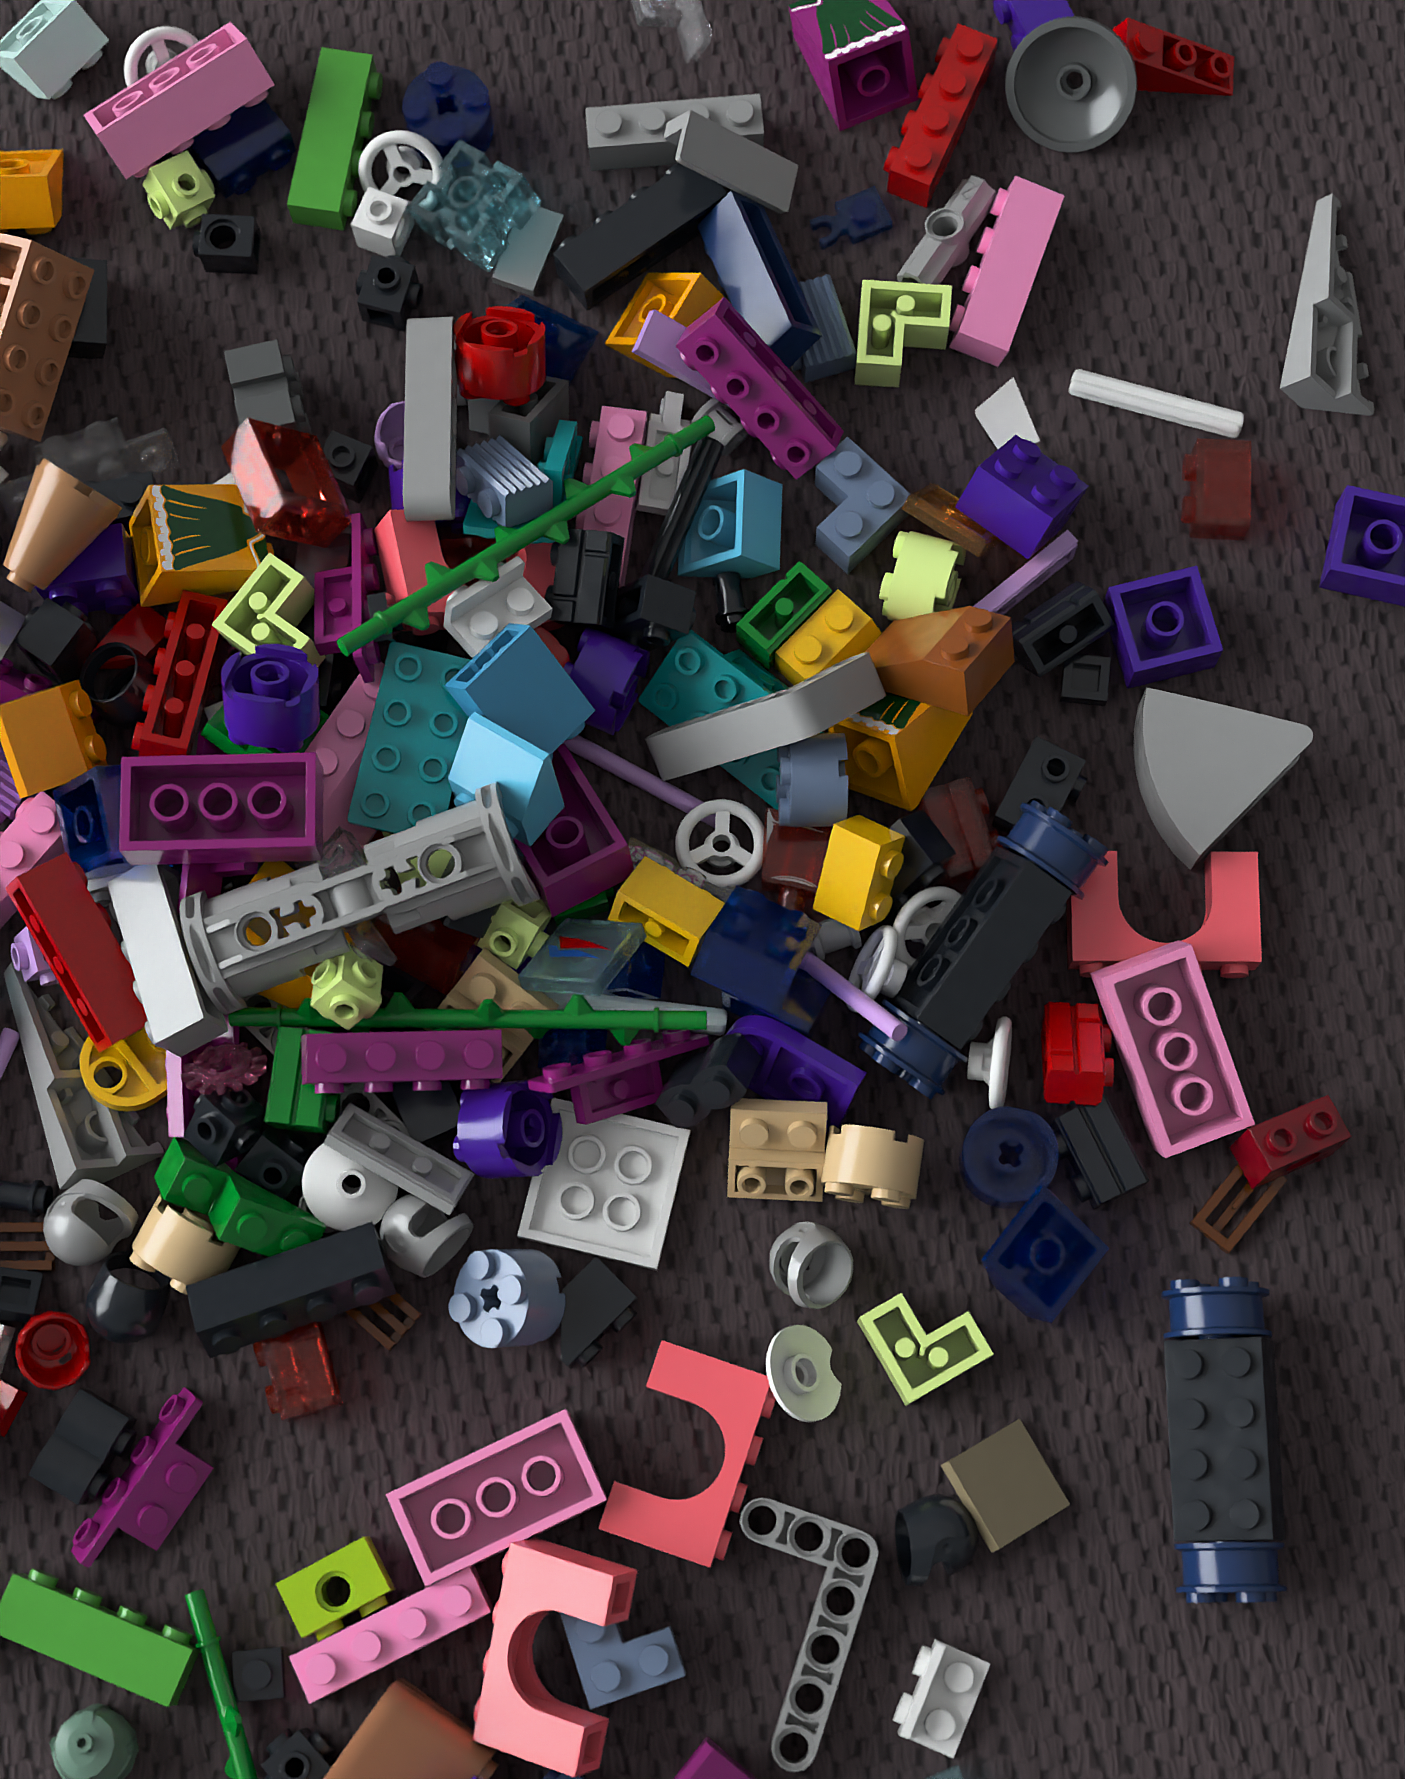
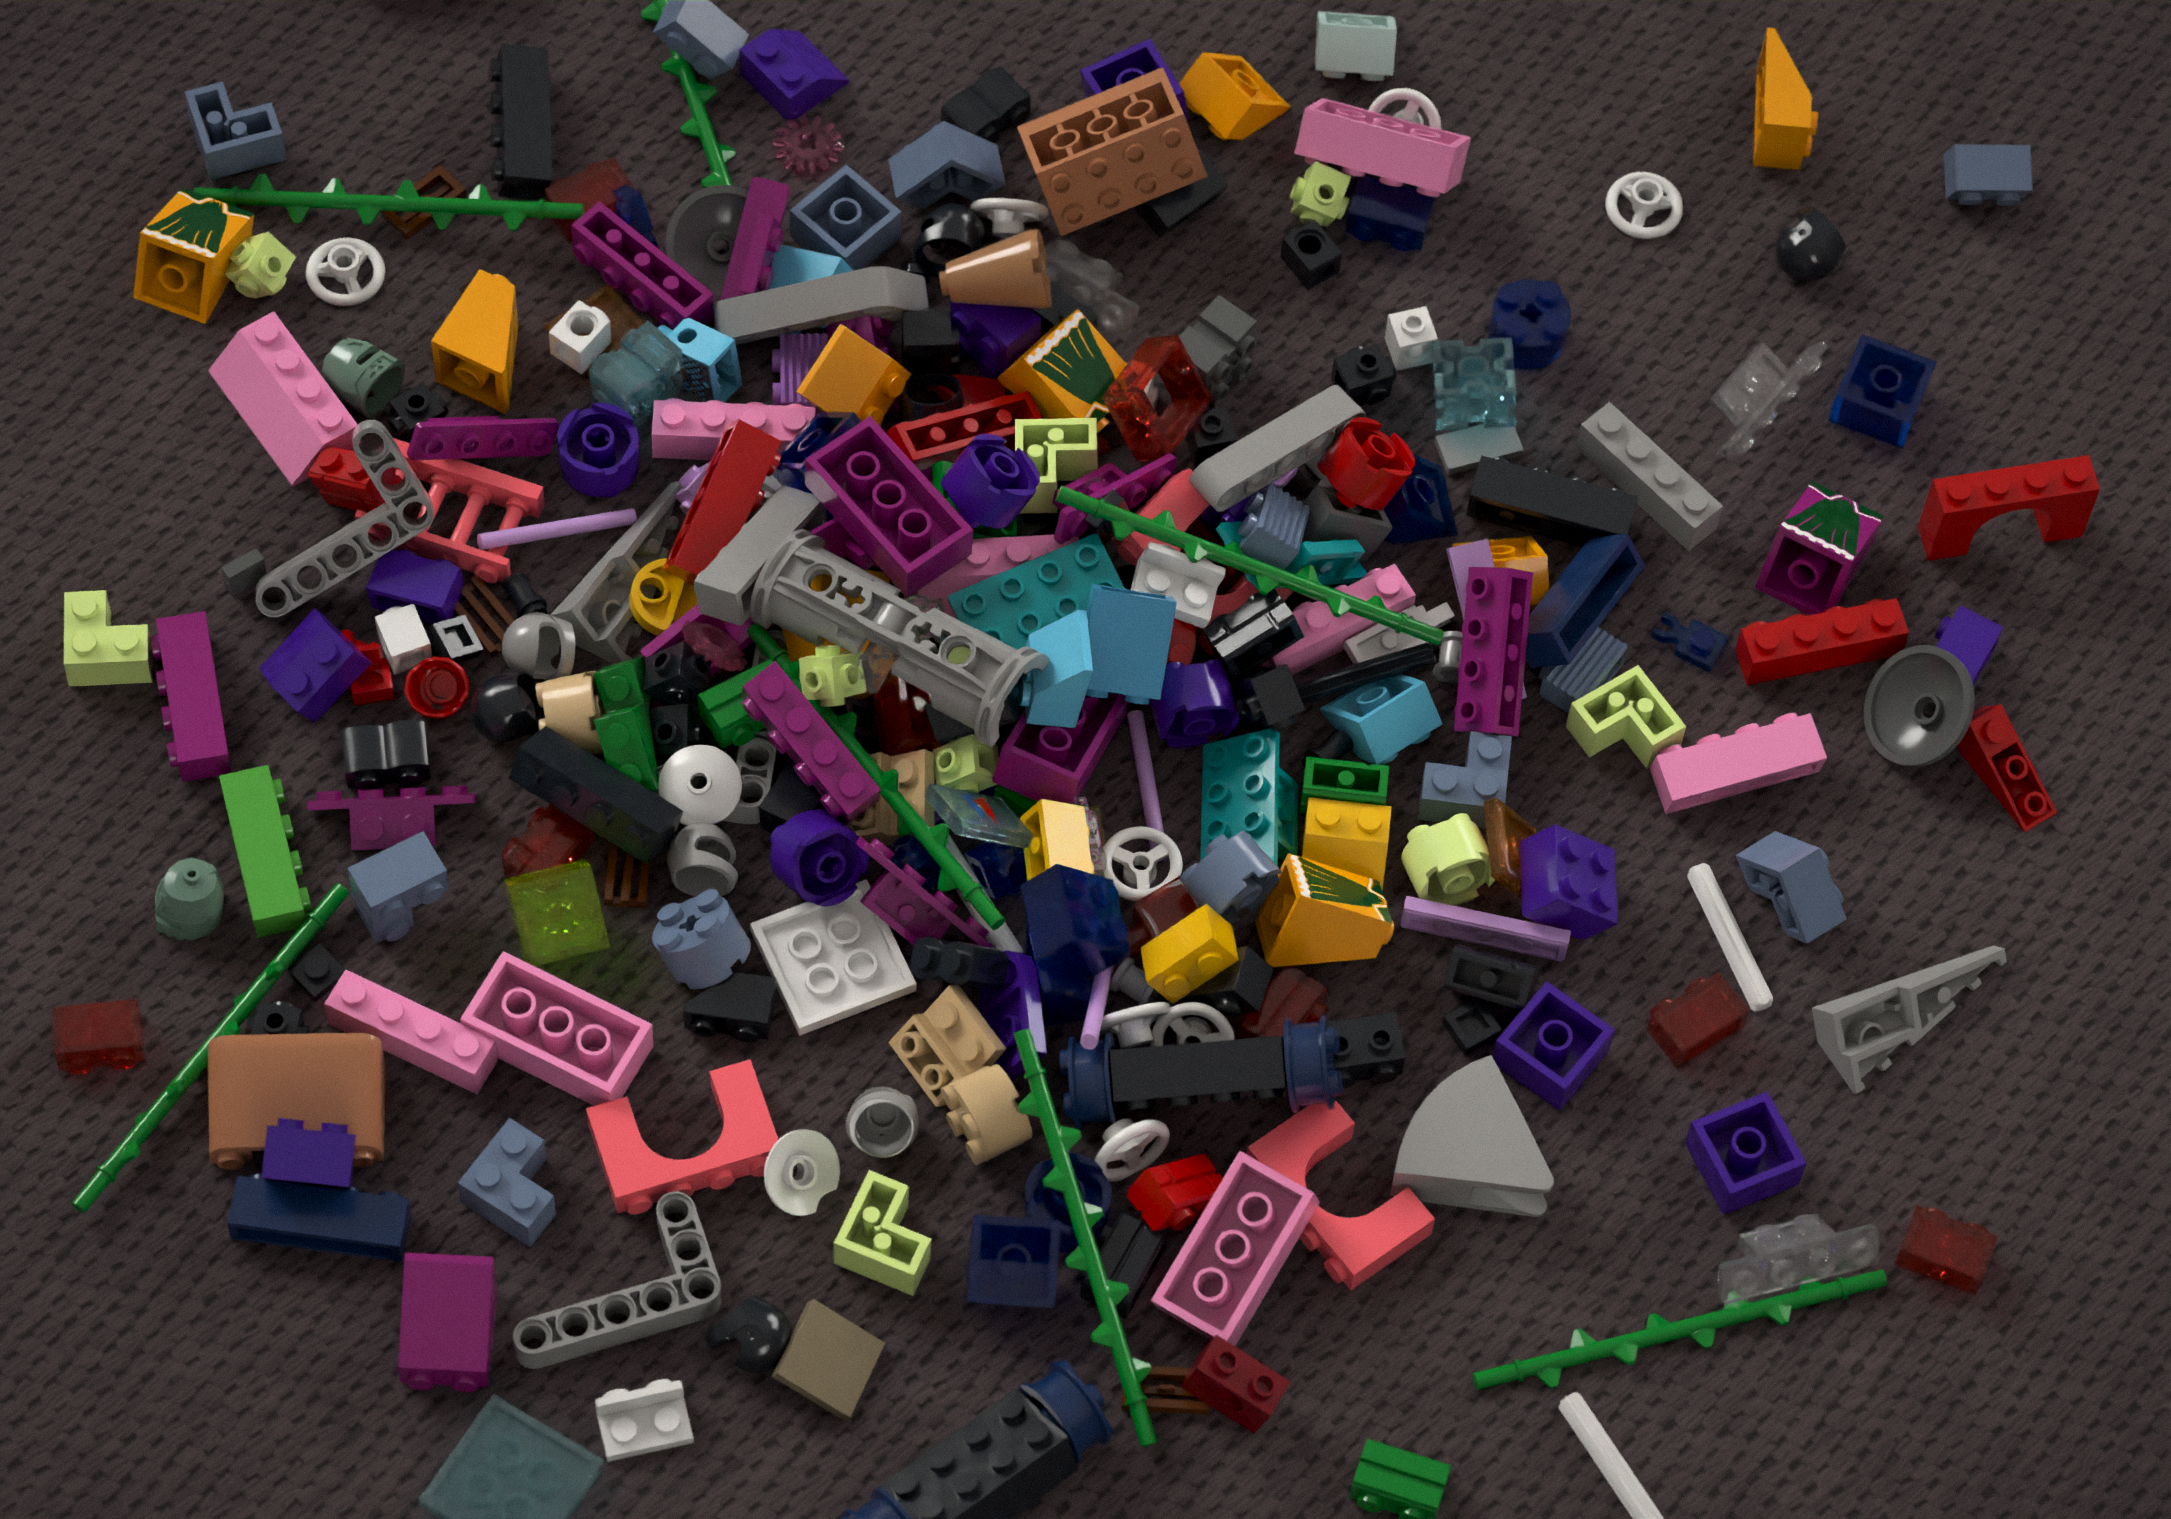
camera: 45 degrees right, 15 degrees down
(237, 1543) = (395, 882): none -> sand blue brick
(307, 1590) = (402, 958): lime brick -> none
(333, 139) = (1448, 264): bright green brick -> none
(379, 1411) = (556, 913): none -> clear neon green brick
(399, 1158) = (741, 800): light grey tile -> none
(400, 156) = (1477, 321): white piece -> none
(514, 1705) = (425, 1133): arch -> none
(732, 160) = (1651, 521): light grey panel -> none
(768, 720) = (1255, 813): light grey beam -> none
(945, 657) = (1391, 899): dark orange slope -> none
(948, 233) = (1730, 706): light grey piece -> none
(1006, 416) = (1632, 845): white sticker -> none
(1049, 1160) = (1086, 1255): none -> green plant
(1155, 309) = (1796, 882): none -> sand blue brick

